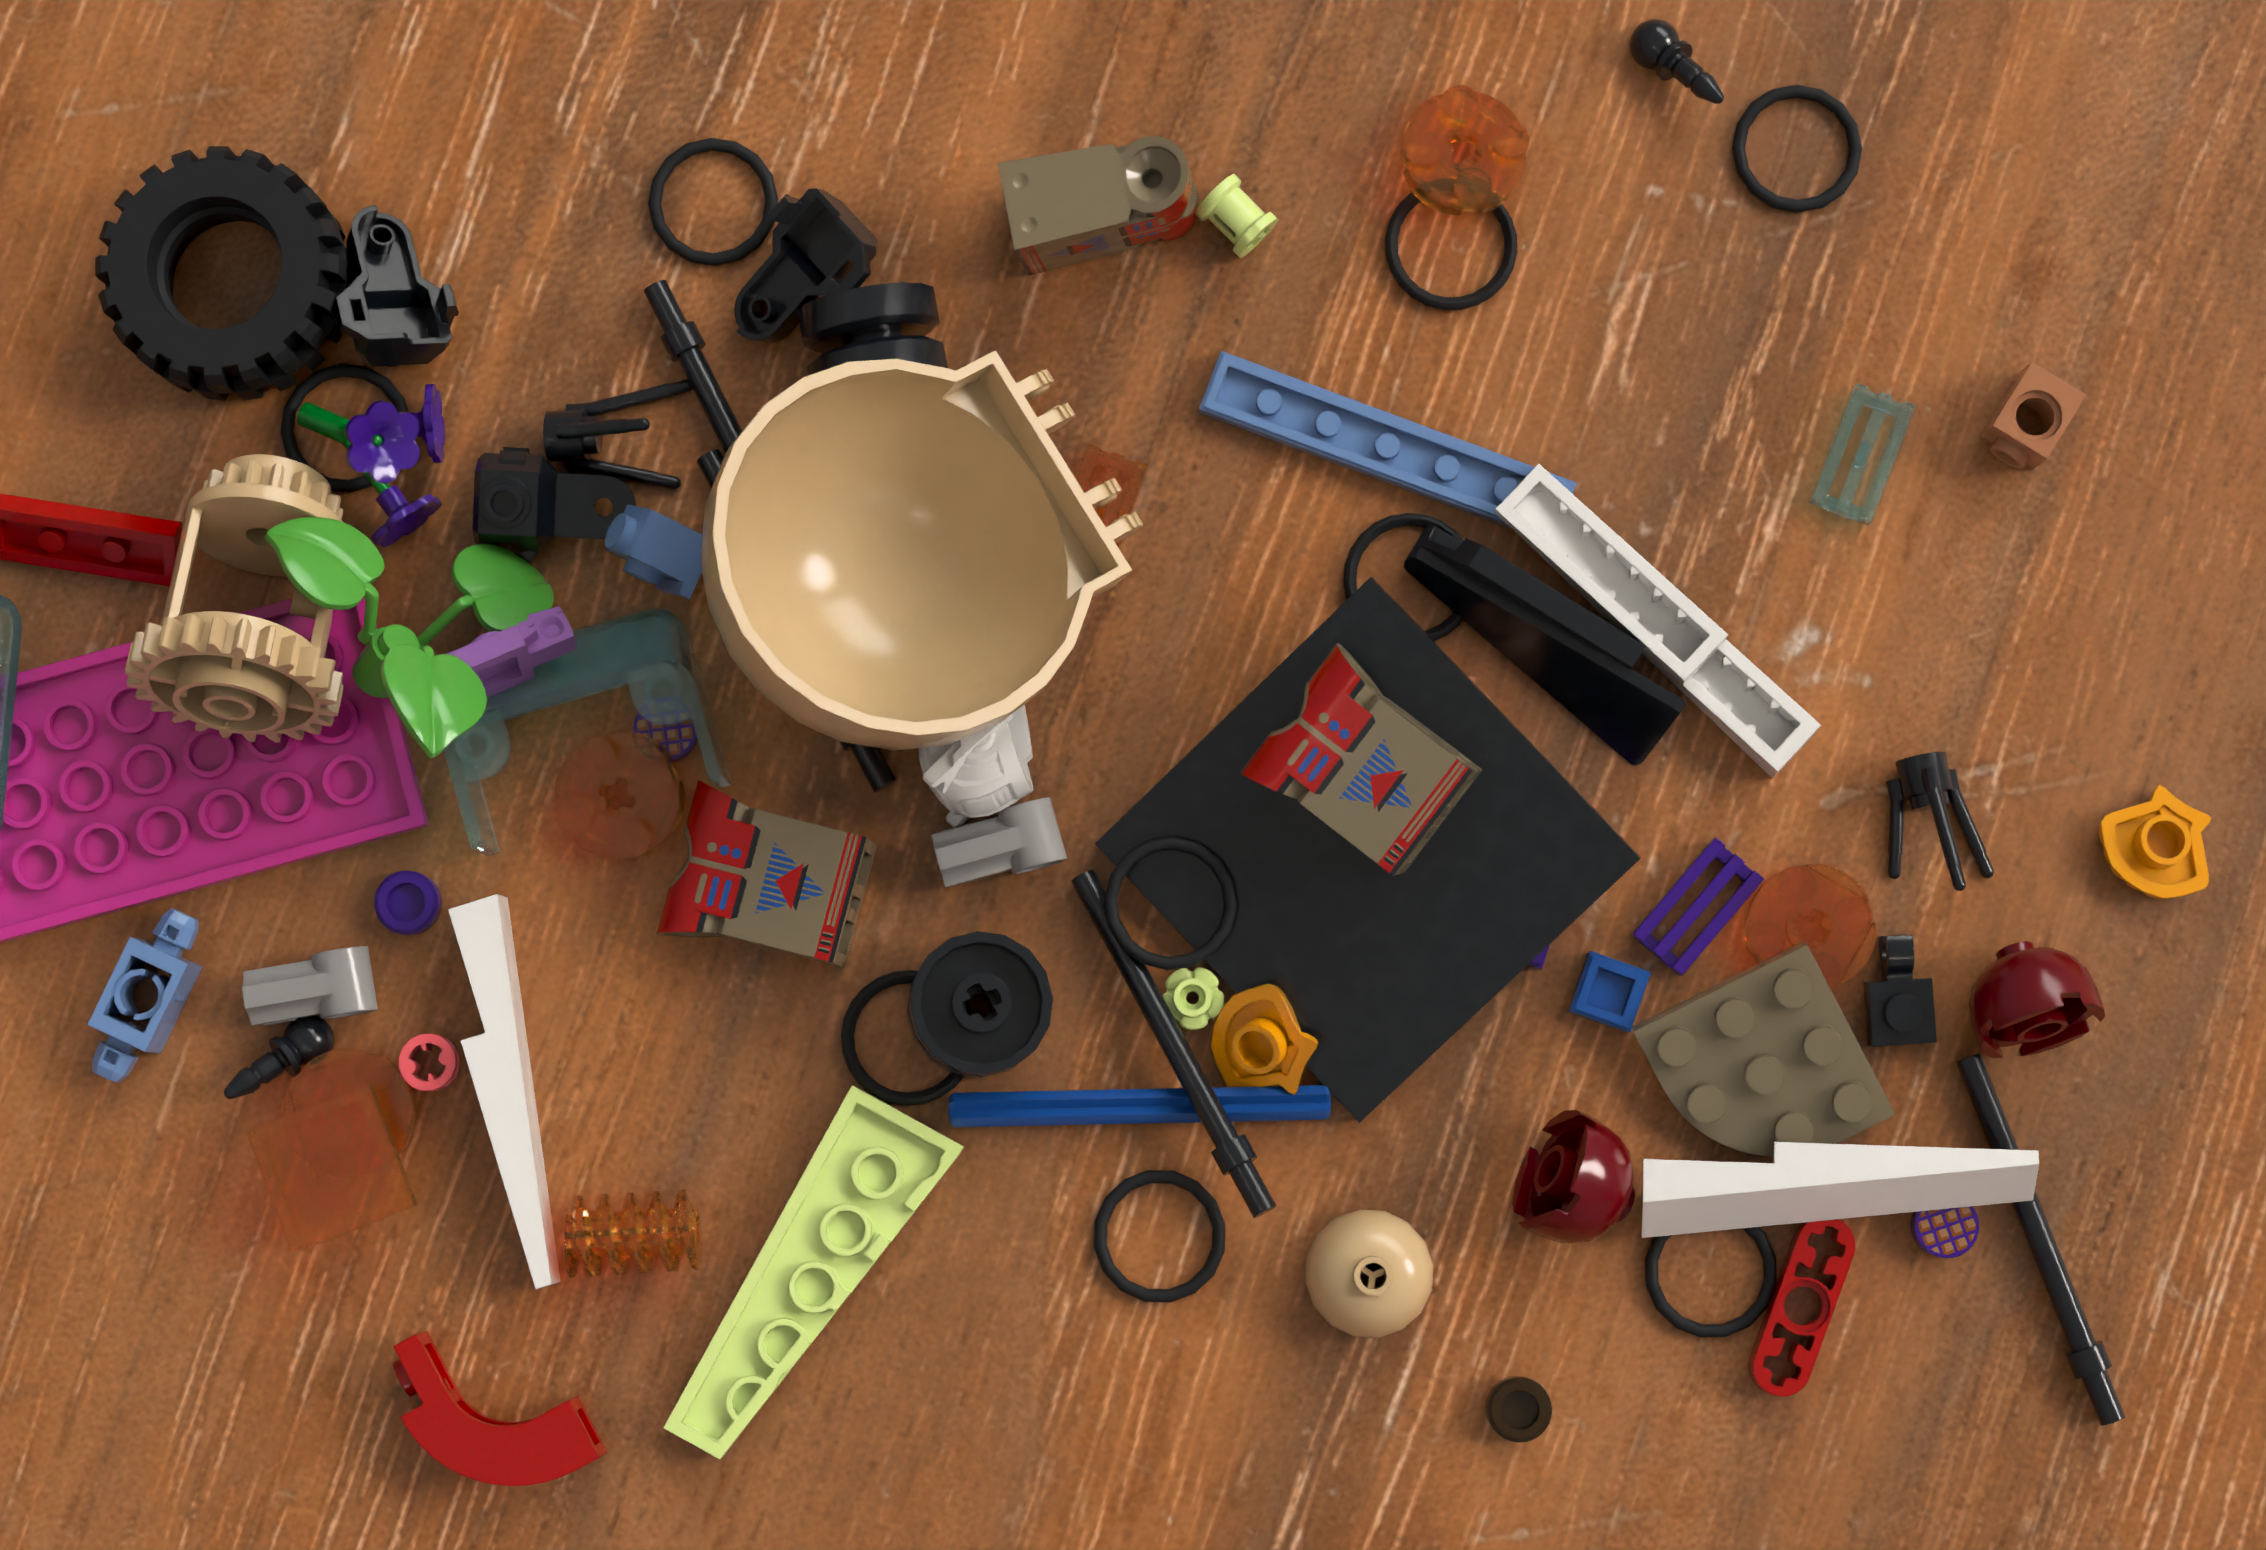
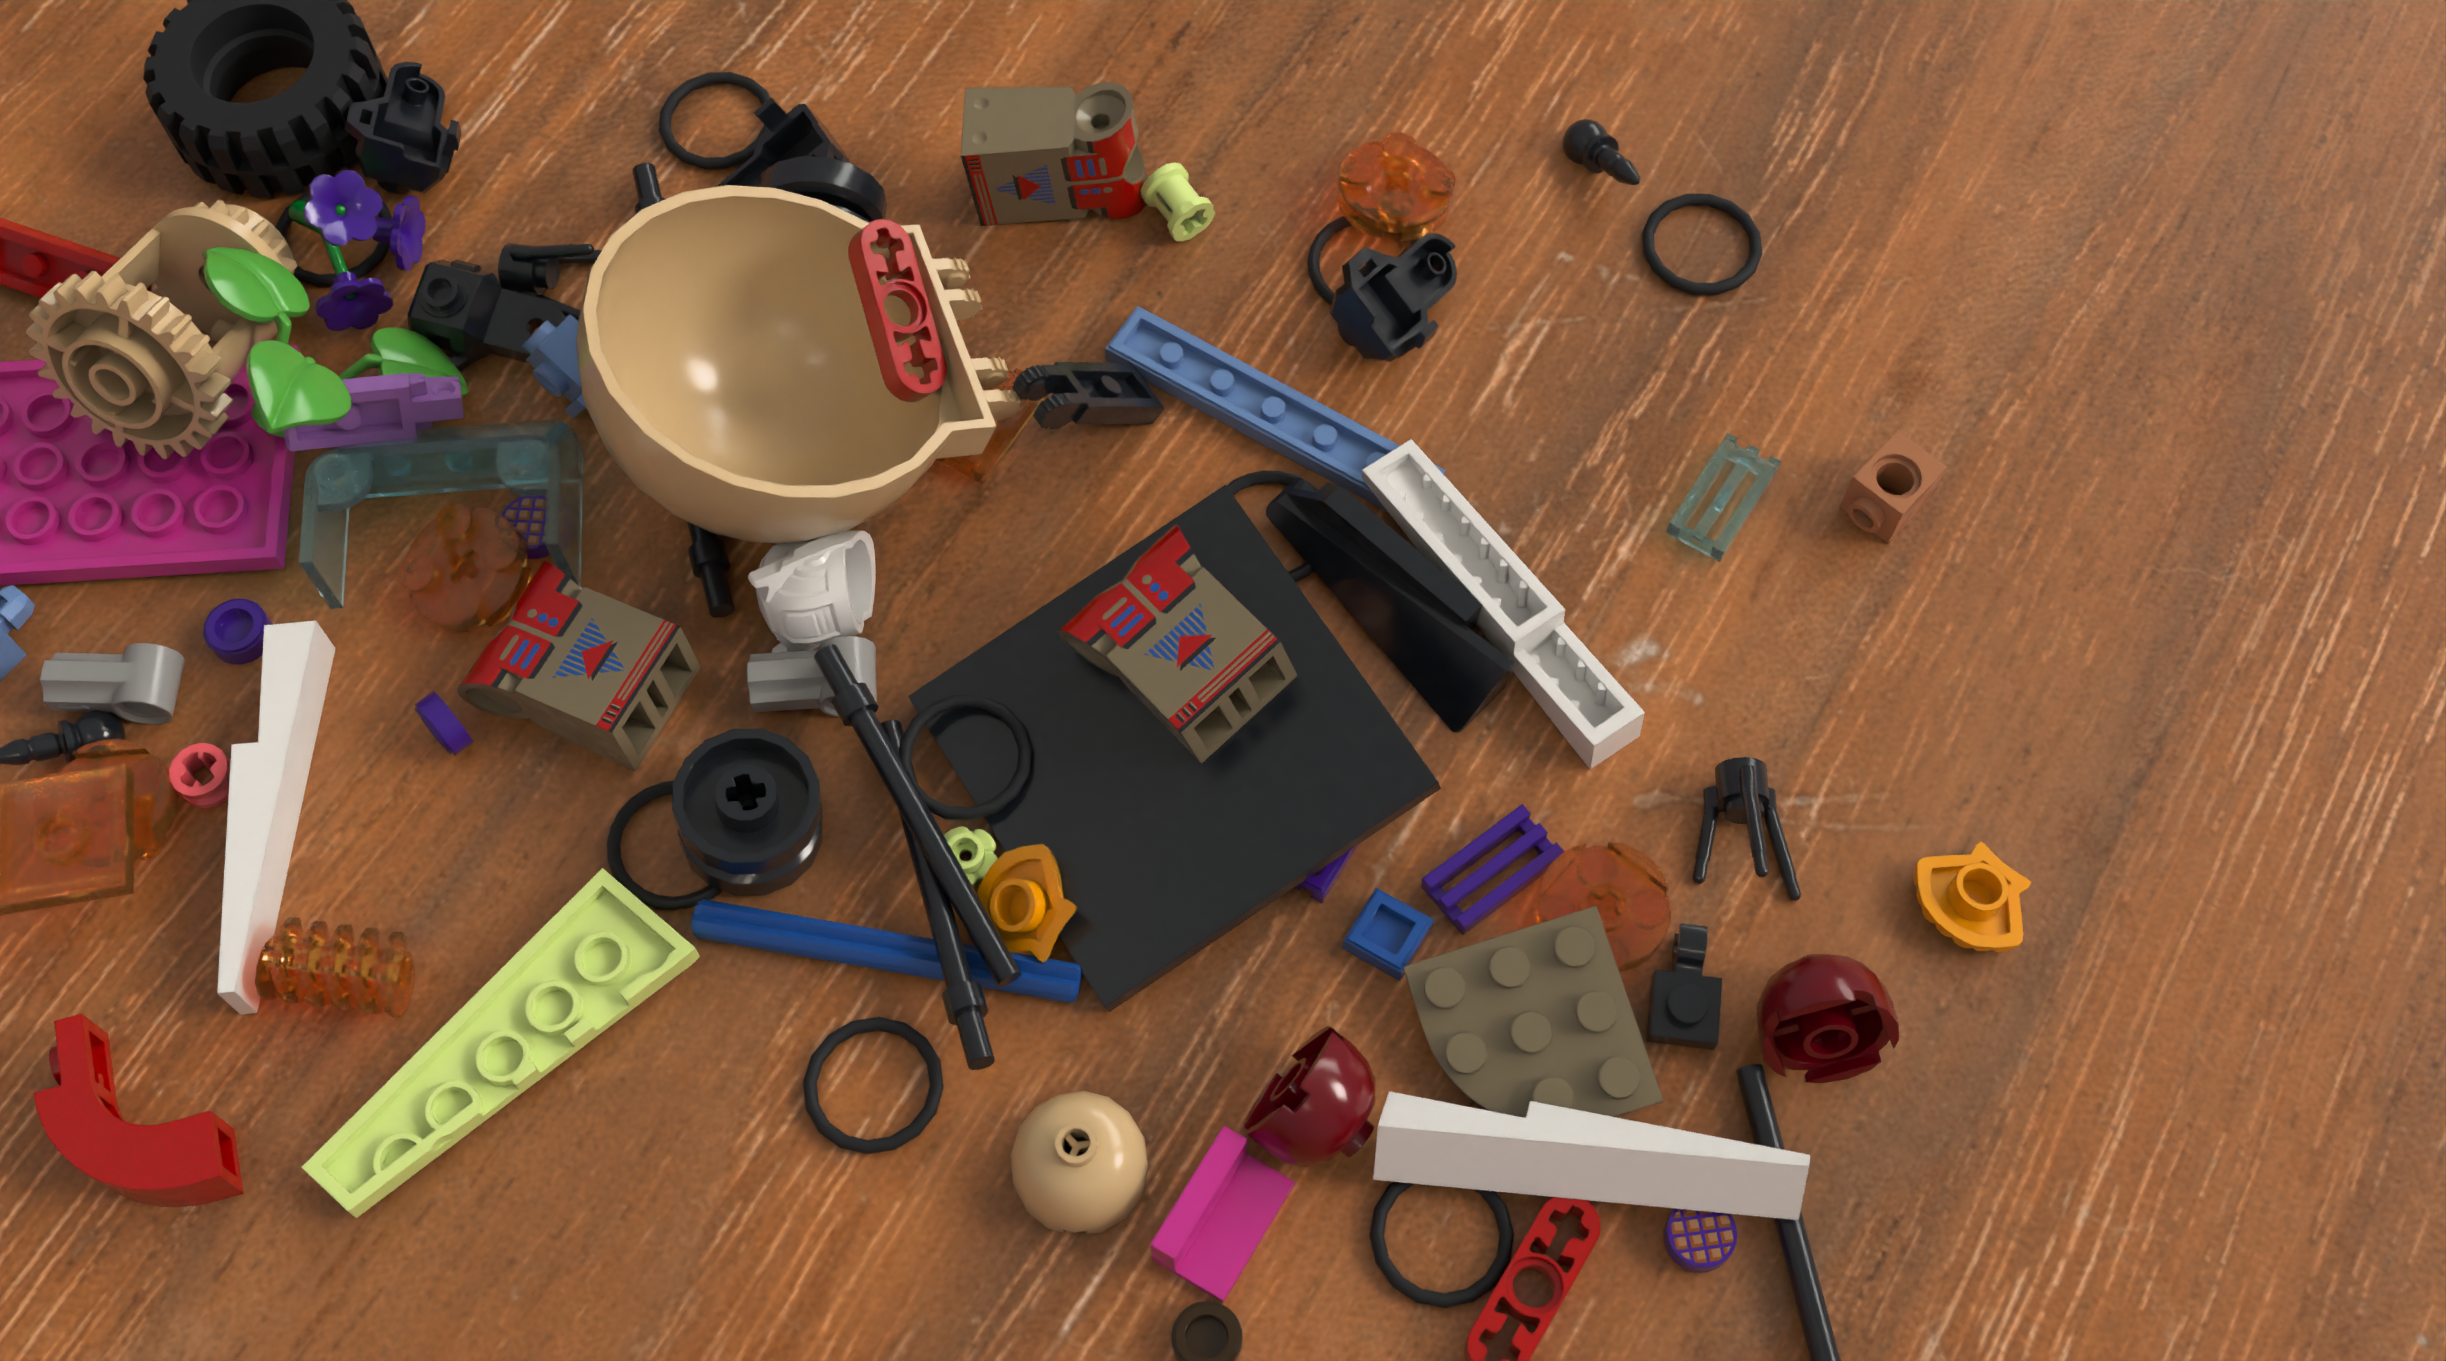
camera: 10 degrees right, 20 degrees down
(649, 966) = (442, 723): none -> dark purple tile
(975, 453) = (909, 287): none -> red beam
(1056, 880) = (858, 709): none -> black bar
(1206, 483) = (1088, 394): none -> black hinge
(1484, 304) = (1387, 299): none -> black piece
(1510, 1297) = (1220, 1217): none -> dark pink panel

